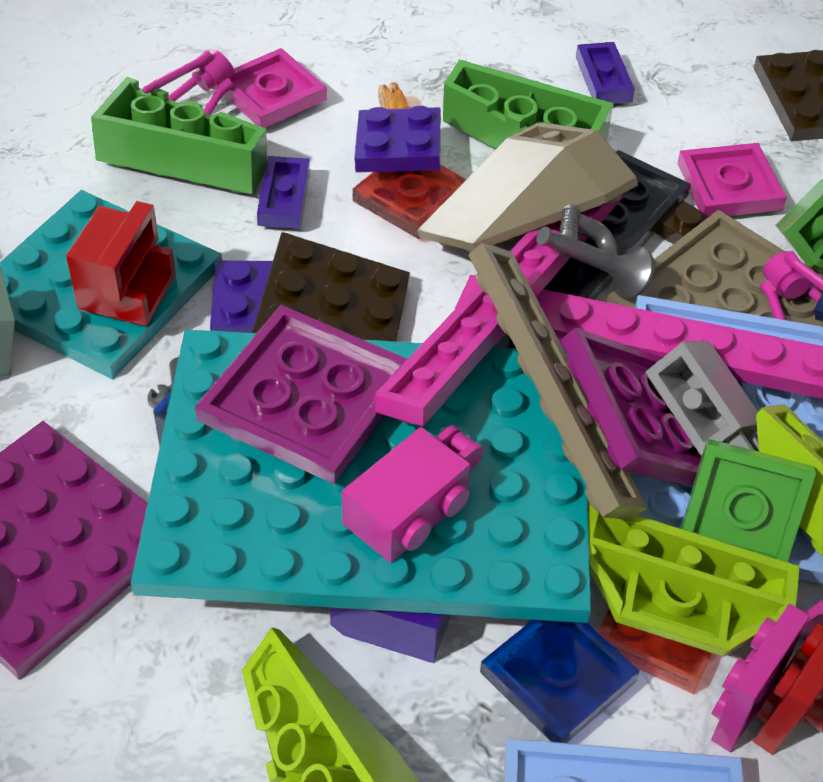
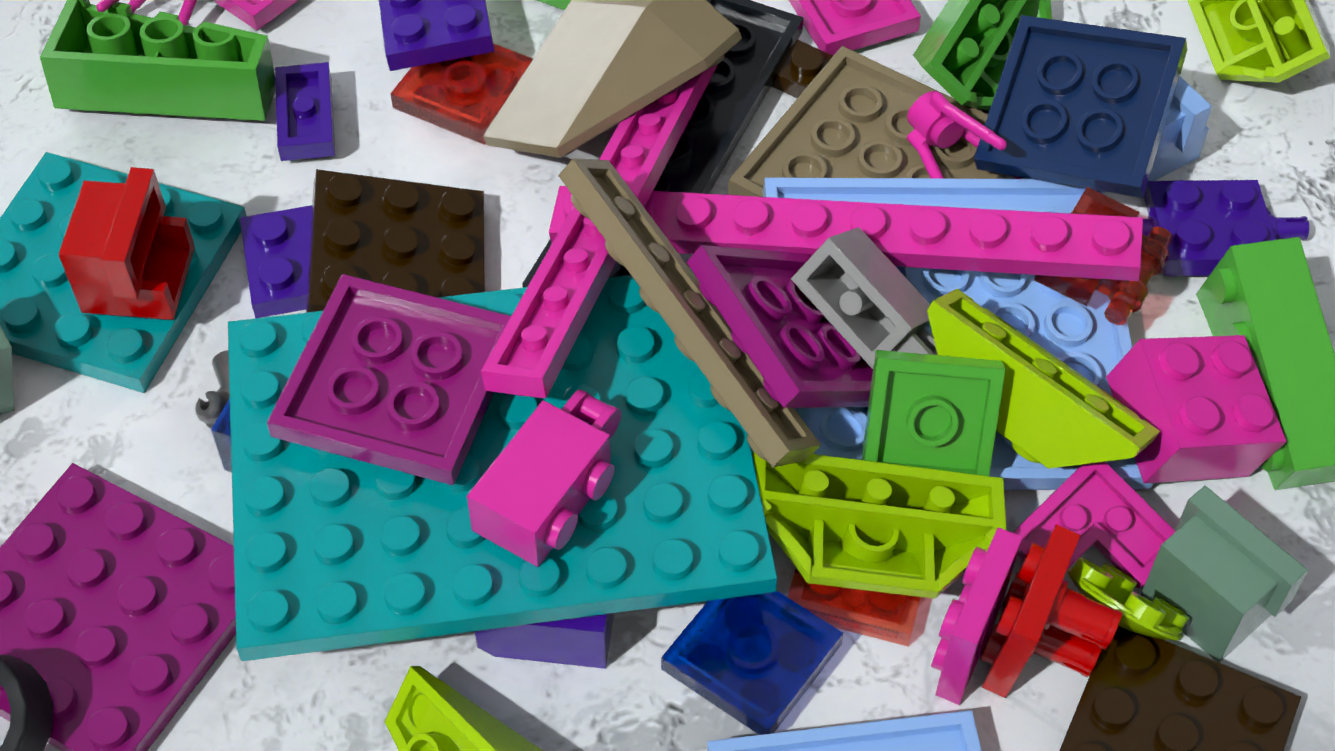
camera: 10 degrees left, 5 degrees up
(629, 271) = (750, 148): flat silver piece -> none

